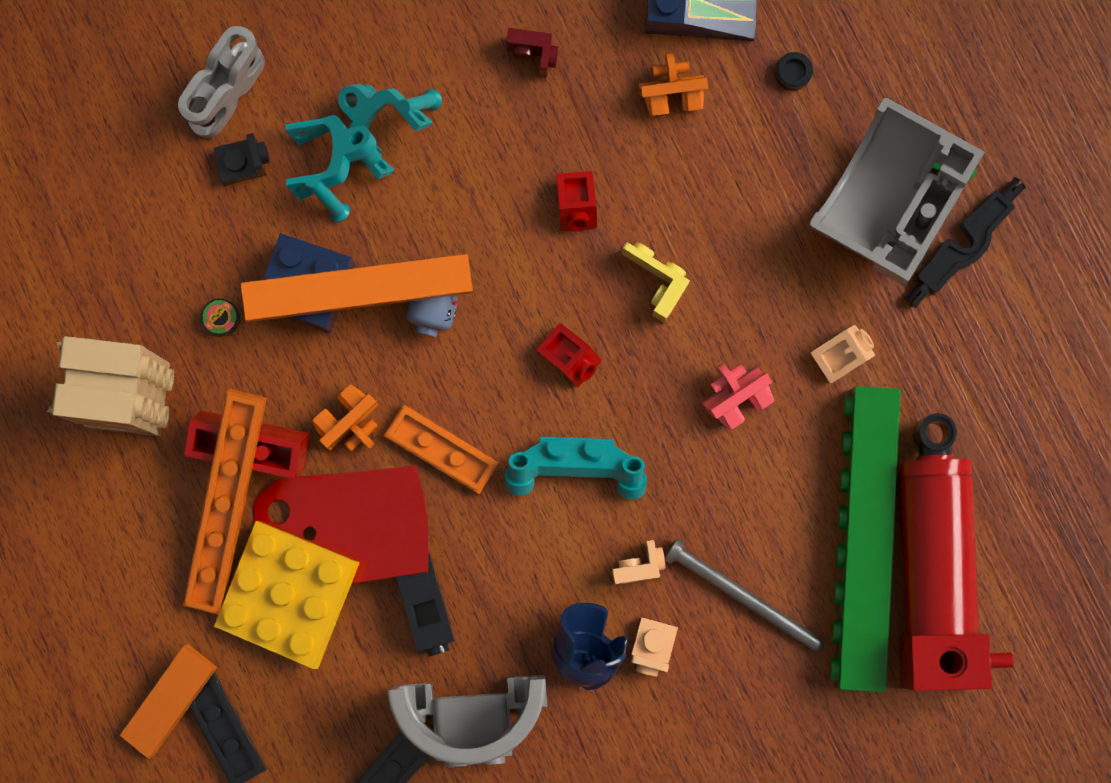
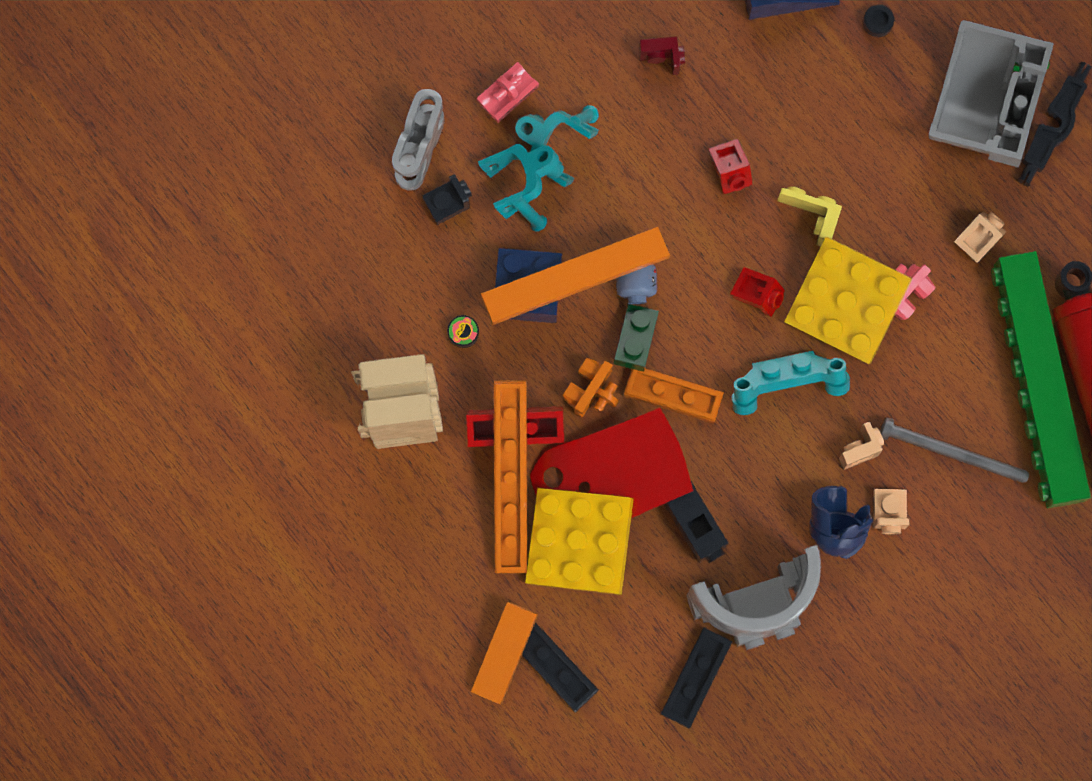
camera: 10 degrees left, 5 degrees down
(341, 51) = (507, 92): none -> coral hips
(414, 374) = (636, 337): none -> dark green plate
(668, 392) = (848, 300): none -> yellow plate
(689, 87) = (799, 54): orange hips -> none

